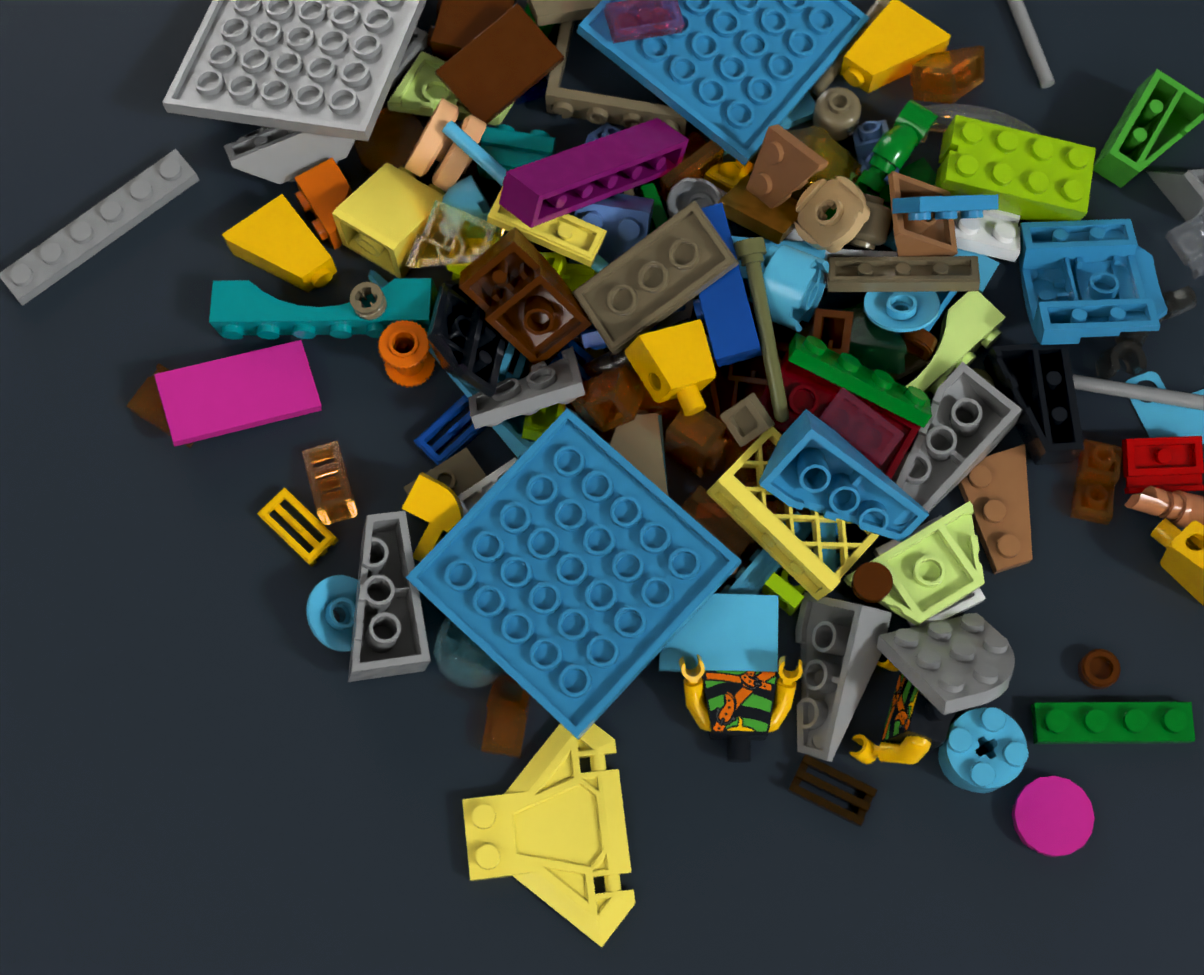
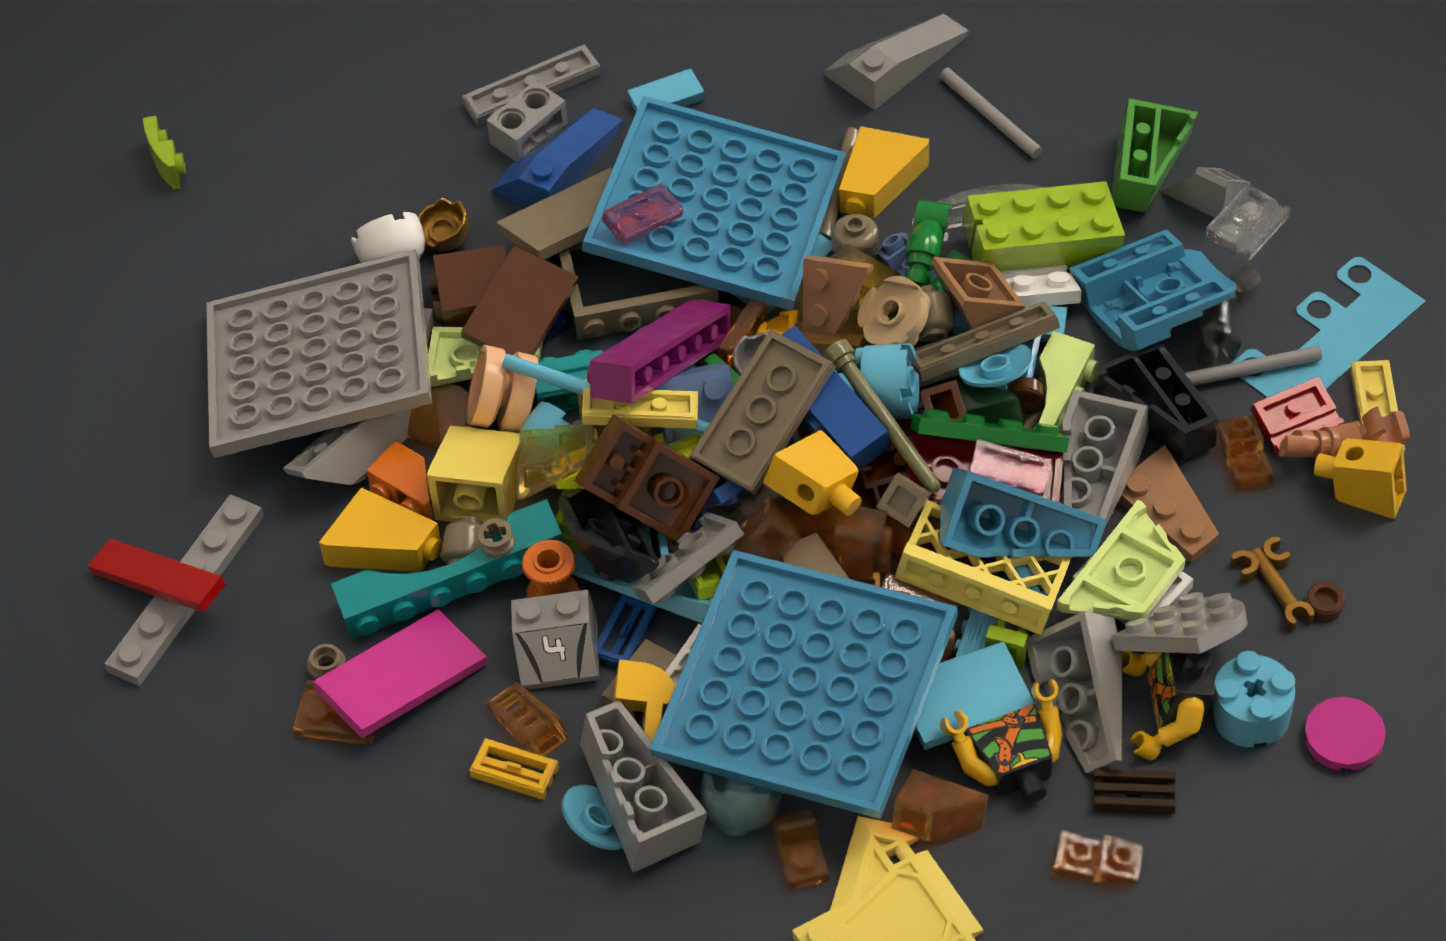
camera: 20 degrees left, 20 degrees down
(74, 208) = (157, 575): none -> red tile
(177, 345) = (321, 655): none -> dark tan plate
(345, 279) = (460, 539): none -> dark tan head
(385, 417) = (555, 639): none -> light grey slope
(642, 735) = (937, 808): none -> clear orange slope
(766, 846) = (1096, 861): none -> clear orange slope
(872, 582) = (1083, 593): reddish brown tile -> none
(944, 206) = (995, 267): dark azure plate -> none
(948, 74) = (941, 172): clear orange slope -> none
(1061, 603) = (1266, 563): none -> pearl gold bar
(1112, 722) = (1359, 639): green plate -> none

